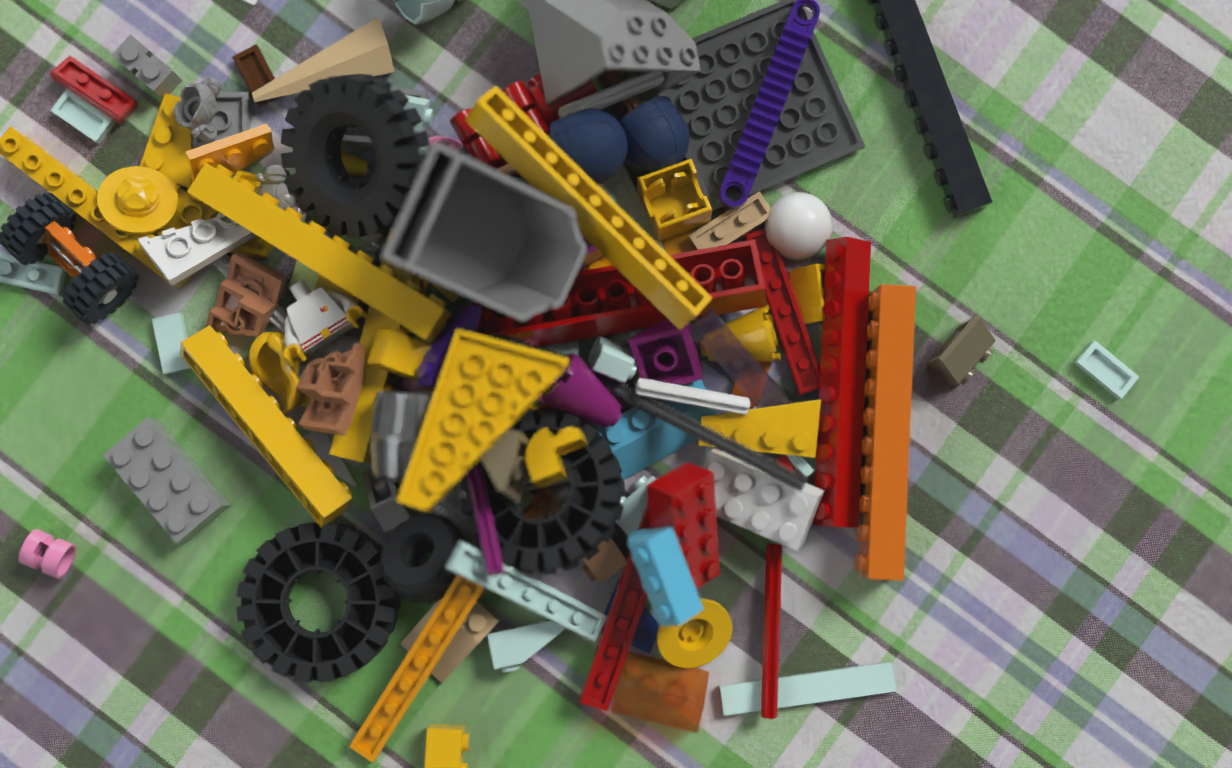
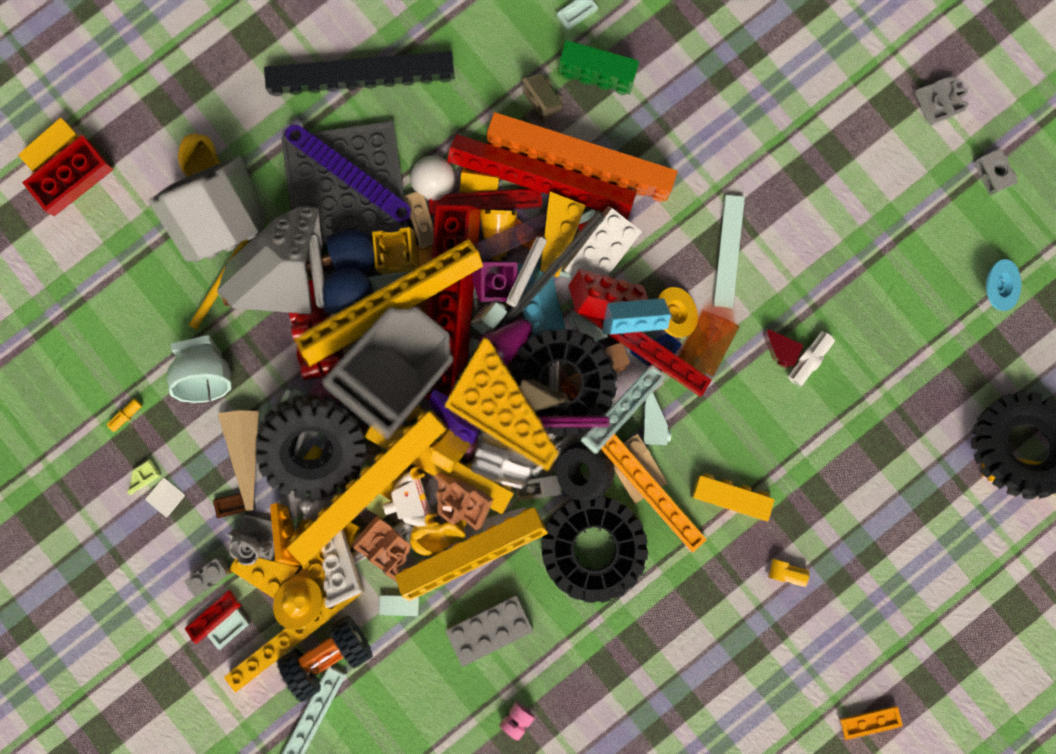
camera: 75 degrees left, 0 degrees up
(545, 451) = (540, 372): yellow brick -> none
(771, 631) = (687, 264): red axle -> none
(1028, 422) = (598, 67): none -> green brick

